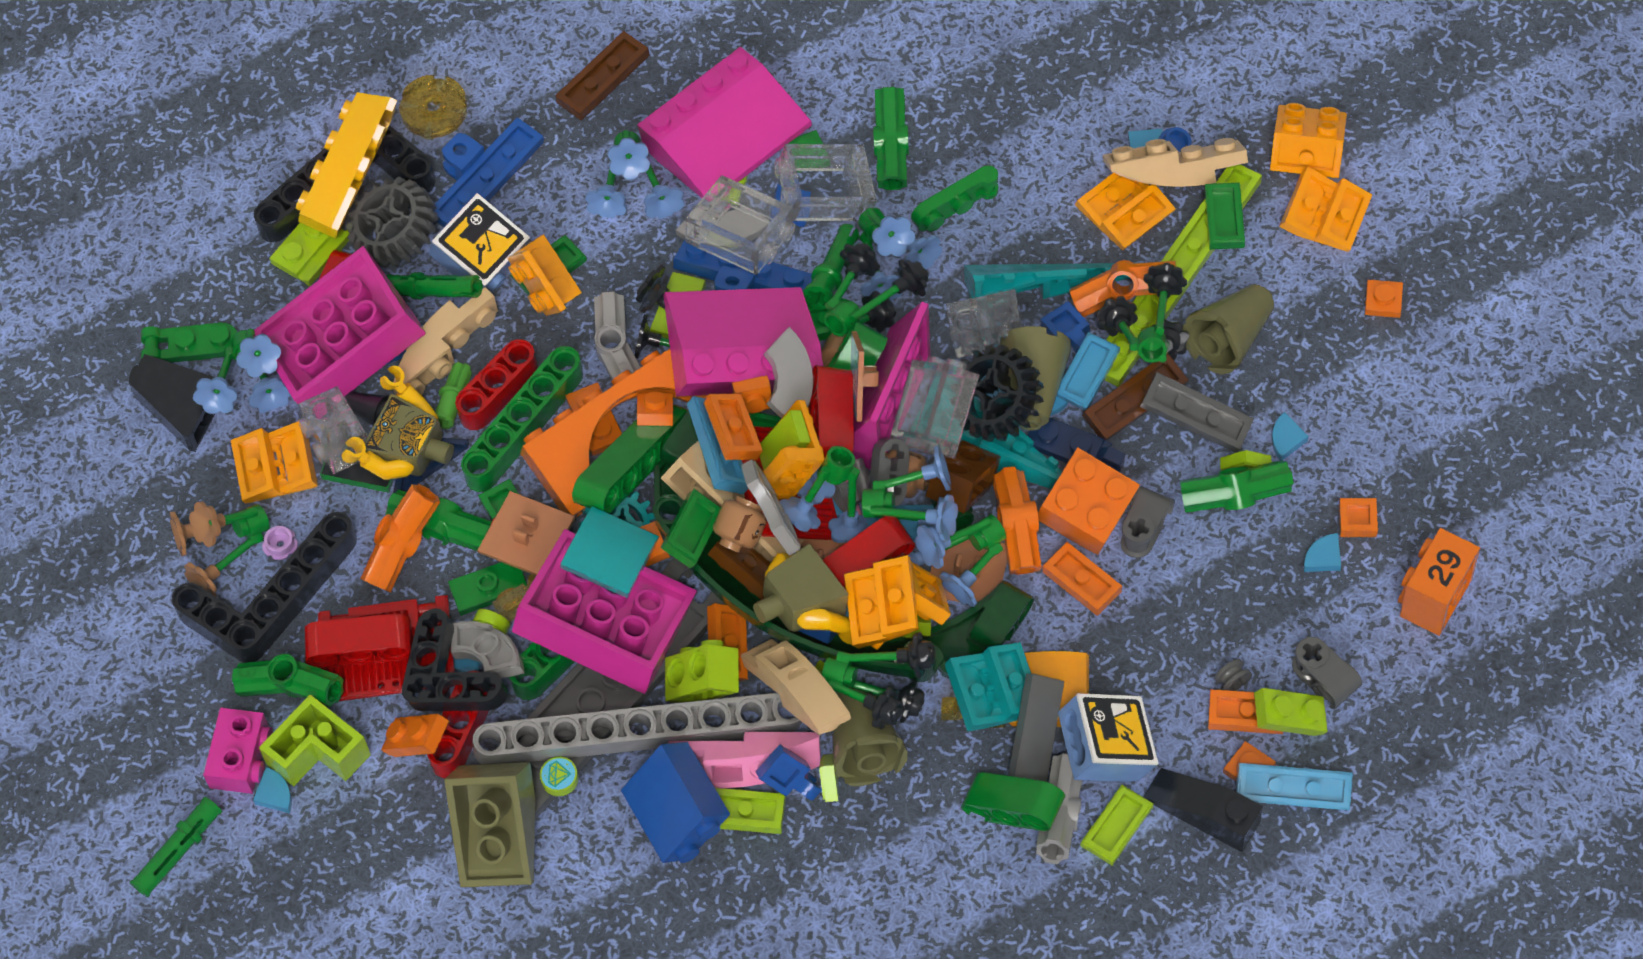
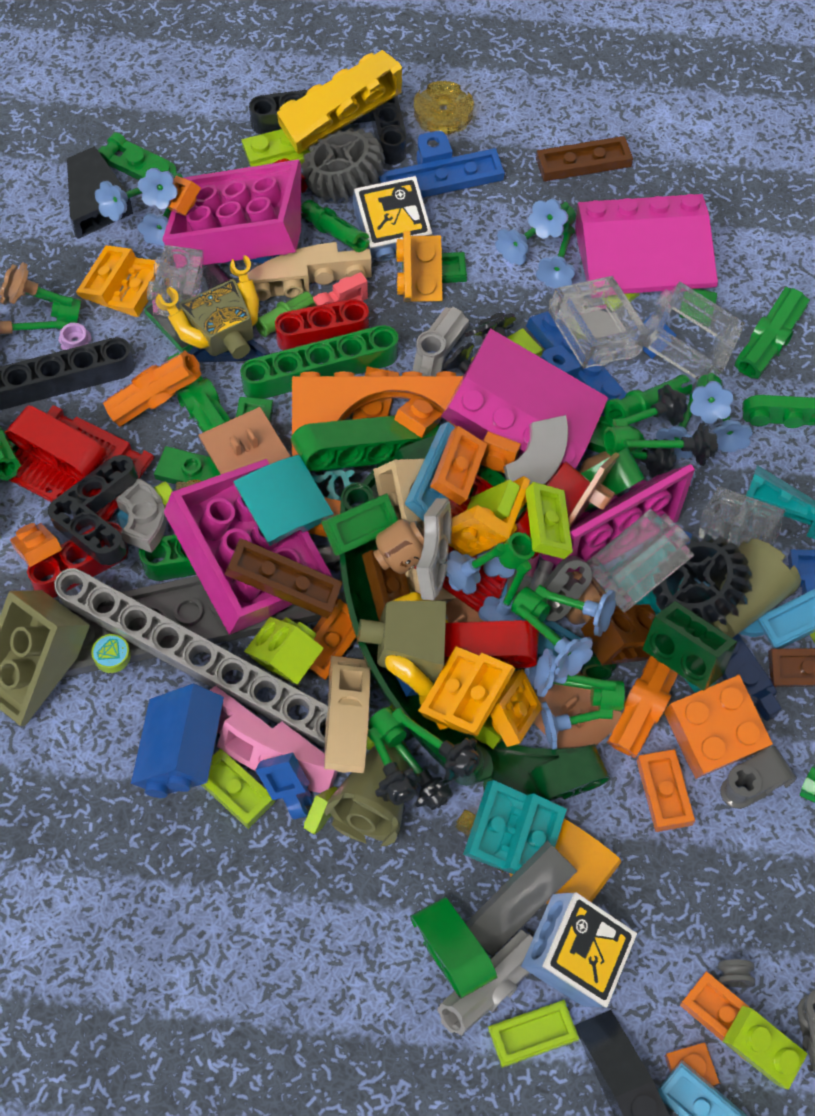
camera: 30 degrees right, 0 degrees up
(288, 344) = (186, 196): none -> orange plate
(492, 341) = (347, 288): none -> coral plate
(663, 614) = (283, 578): none -> reddish brown plate
(844, 423) = (548, 520): none -> lime plate
(1023, 450) = (689, 645): none -> dark green brick

